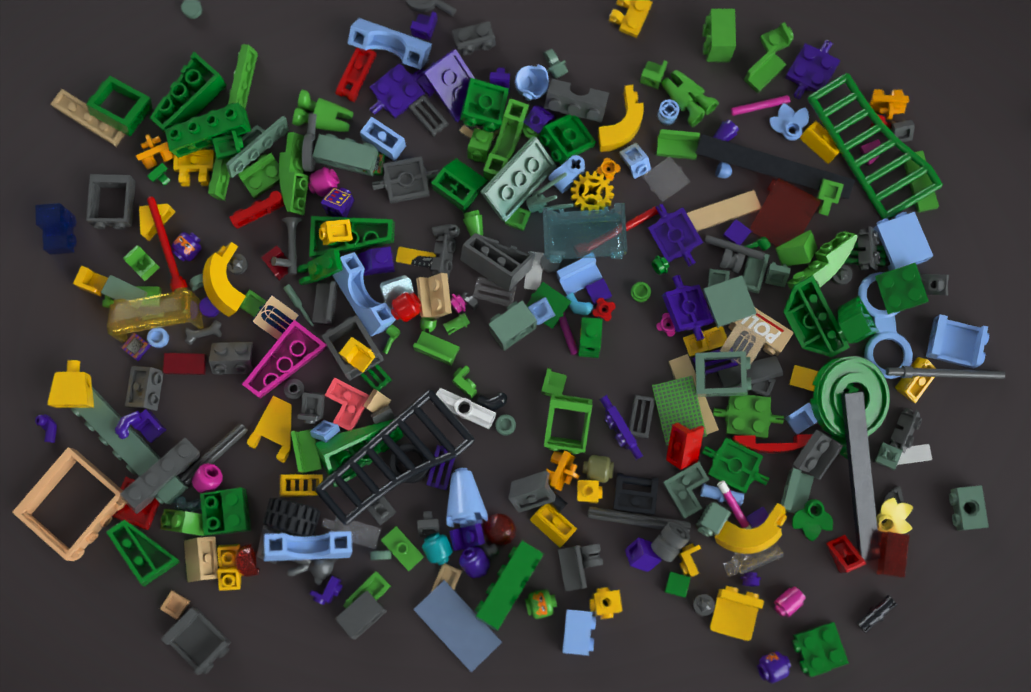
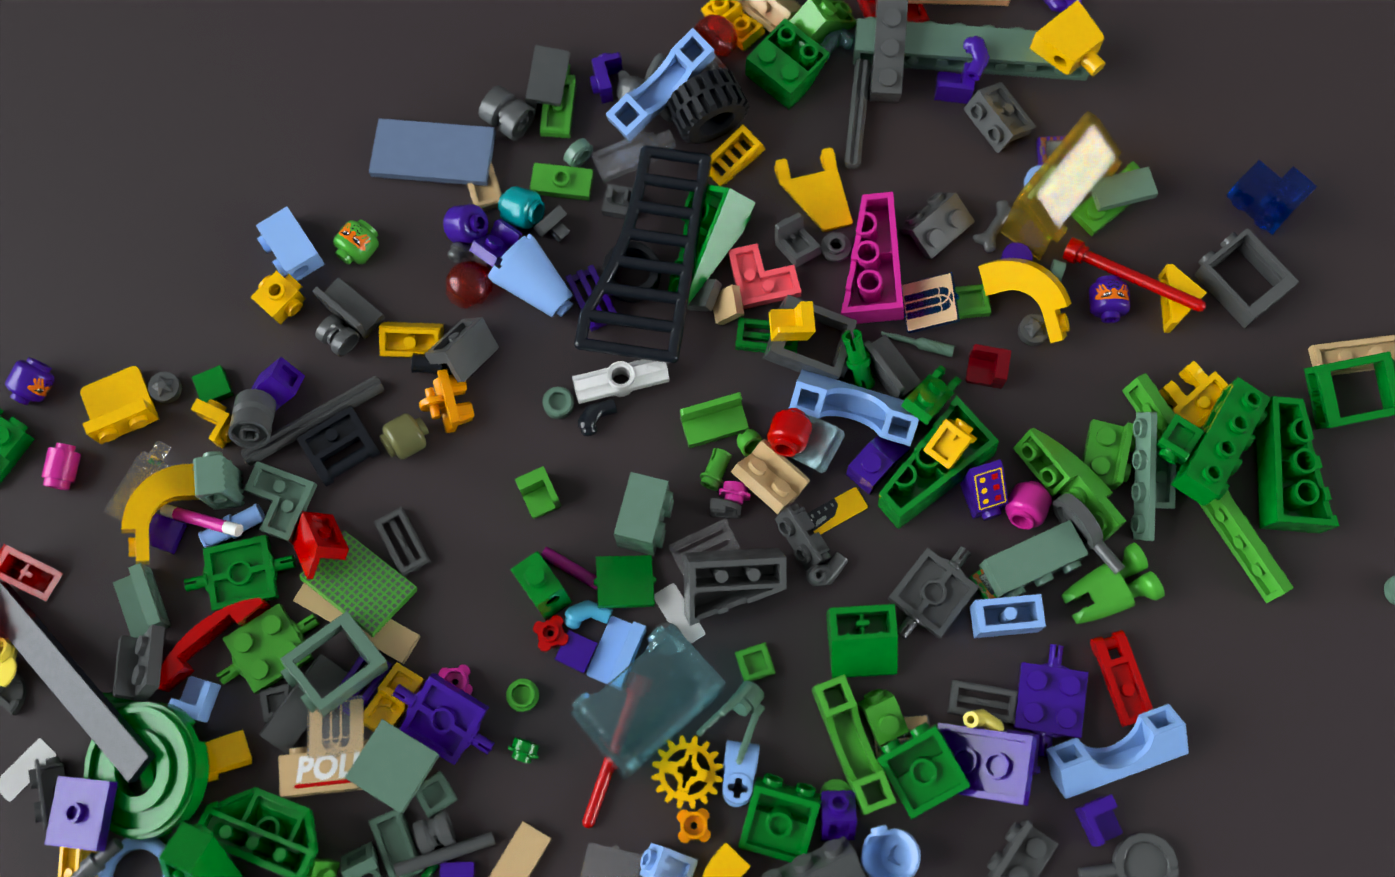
camera: 140 degrees right, 5 degrees down
(90, 281) = (1174, 175): yellow panel -> none
(141, 262) = (1139, 240): bright green bracket -> none
(147, 157) = (1259, 363): light orange hips -> none
(158, 173) = (1223, 353): green tile -> none
(184, 363) = (982, 177): dark red tile -> none
(207, 478) = (834, 87): dark pink head -> none
(257, 210) = (1071, 407): red plate -> none
(291, 262) = (972, 380): dark grey piece -> none
(305, 451) = (769, 193): bright green panel -> none
(325, 430) = (757, 227): light blue tile -> none
(339, 315) = (858, 359): none -> green pin
(393, 332) = (781, 400): bright green hand -> none
(399, 612) = (502, 110): none -> dark grey wheel
(436, 104) = (982, 718): none -> light yellow arm
(467, 385) = (643, 404): bright green bracket -> none
(473, 222) = (800, 607): bright green cone -> none
(500, 78) = (934, 825): dark purple tile -> none
(509, 585) = (405, 227): green wedge -> none
(518, 179) = (793, 706): sand green tile -> none
(542, 310) = (625, 566): light blue tile -> none
(573, 404) = (491, 475): bright green window -> none
(589, 491) = (393, 398): yellow bracket -> none
(623, 434) = (421, 500): dark purple plate -> none
(675, 235) = (533, 804): dark purple plate -> none
(750, 579) = (125, 456): dark purple plate -> none
(812, 523) = (95, 583): green plate -> none
(888, 456) = (51, 741): sand green tile -> none
(896, 400) = (81, 813): none -> plate

